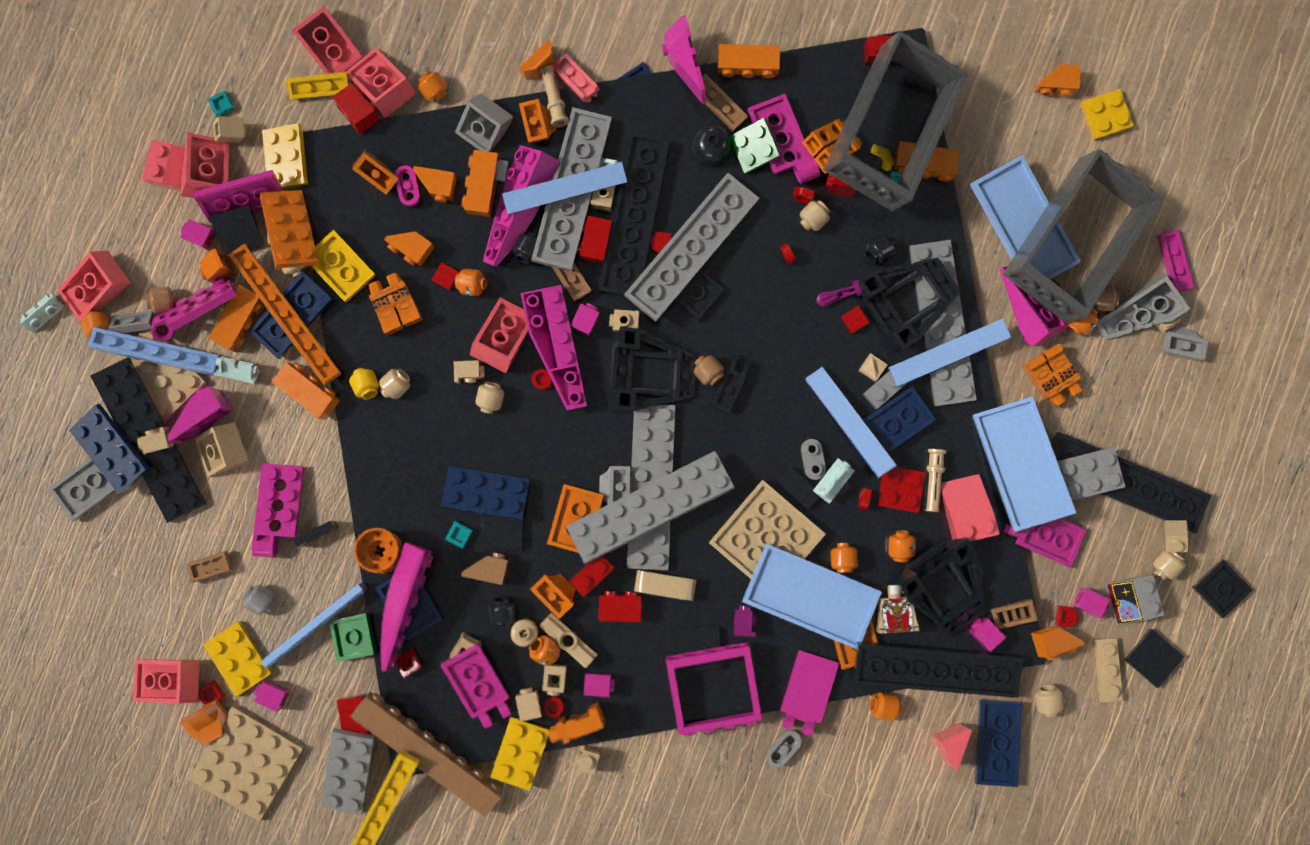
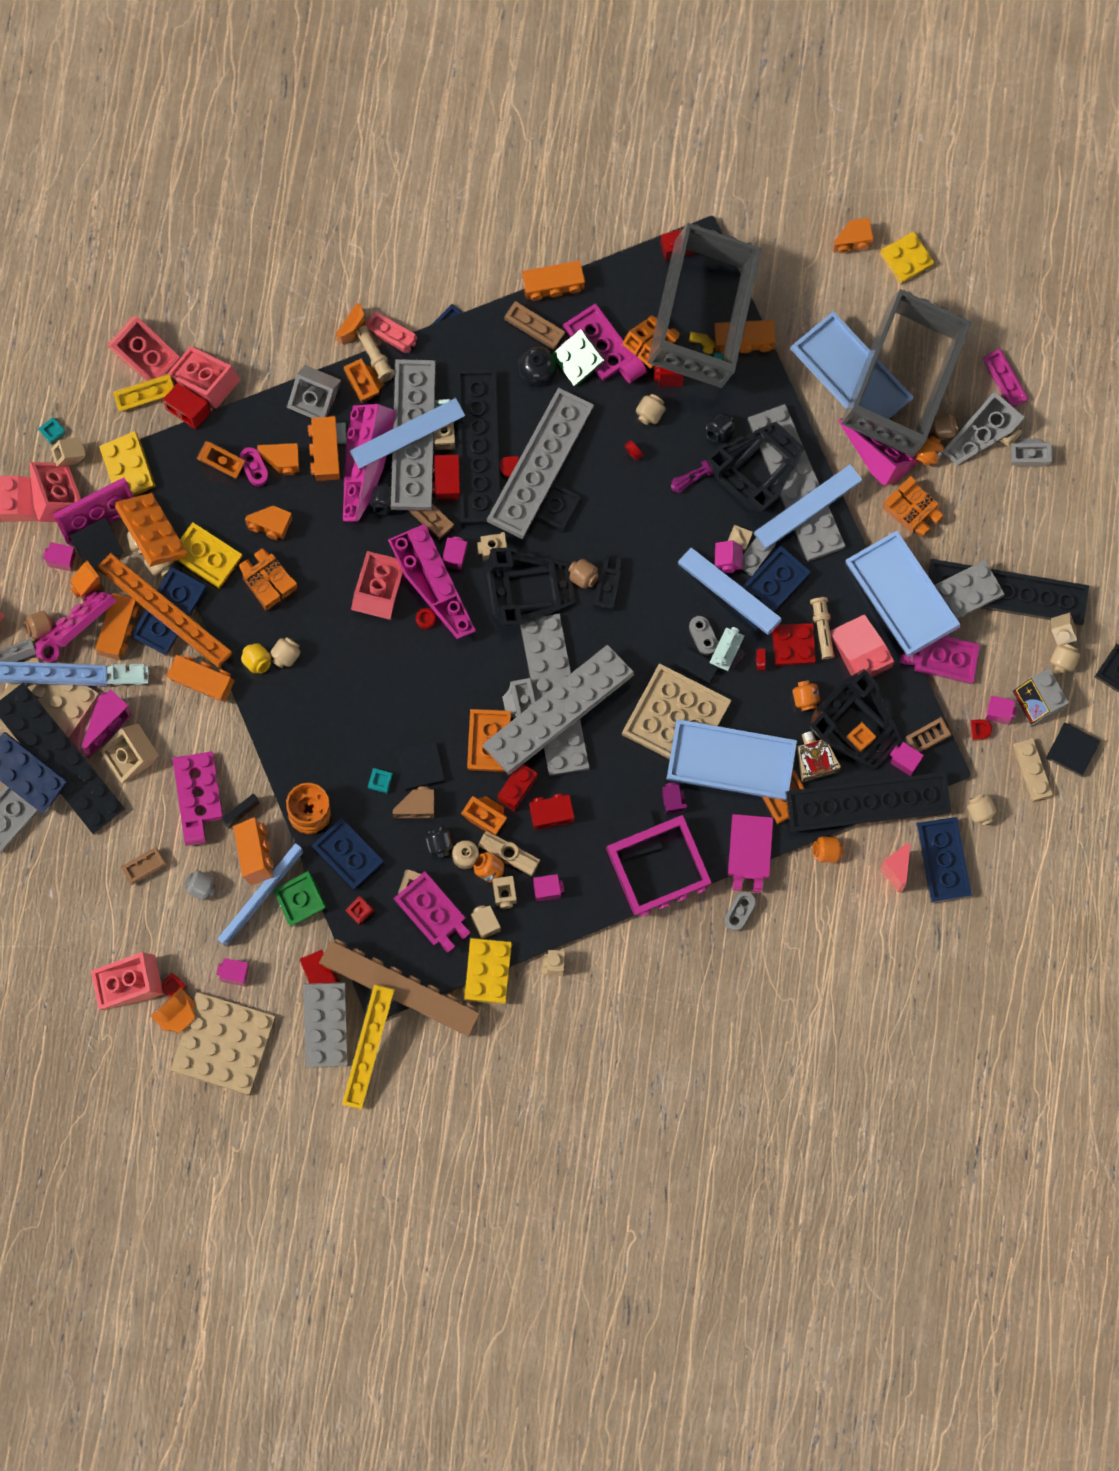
camera: 15 degrees left, 10 degrees down
(155, 440) = (69, 752): tan brick -> none
(237, 658) = (191, 947): yellow plate -> none
(315, 581) = (253, 851): none -> orange brick
(401, 598) = (341, 831): dark pink wedge -> none
(432, 86) = (255, 369): orange head -> none
(445, 276) = (310, 543): red tile -> none
(468, 371) = (353, 625): tan brick -> none
(470, 282) = (336, 542): orange head -> none
(485, 493) = (397, 735): dark blue plate -> none
(489, 397) = (380, 644): tan head -> none
(553, 706) = (509, 920): red tile -> none
(577, 724) = (537, 927): orange hips -> none
(665, 585) = (590, 782): tan beam -> none
(683, 57) = (490, 290): dark pink wedge -> none
(803, 195) = (635, 393): red tile -> none
(844, 558) = (754, 718): orange head -> none
(854, 319) = (712, 497): red tile -> none
(857, 385) = (728, 556): none -> dark pink brick
(947, 604) = (861, 737): none -> orange plate
(1054, 641) = (973, 751): orange slope -> none

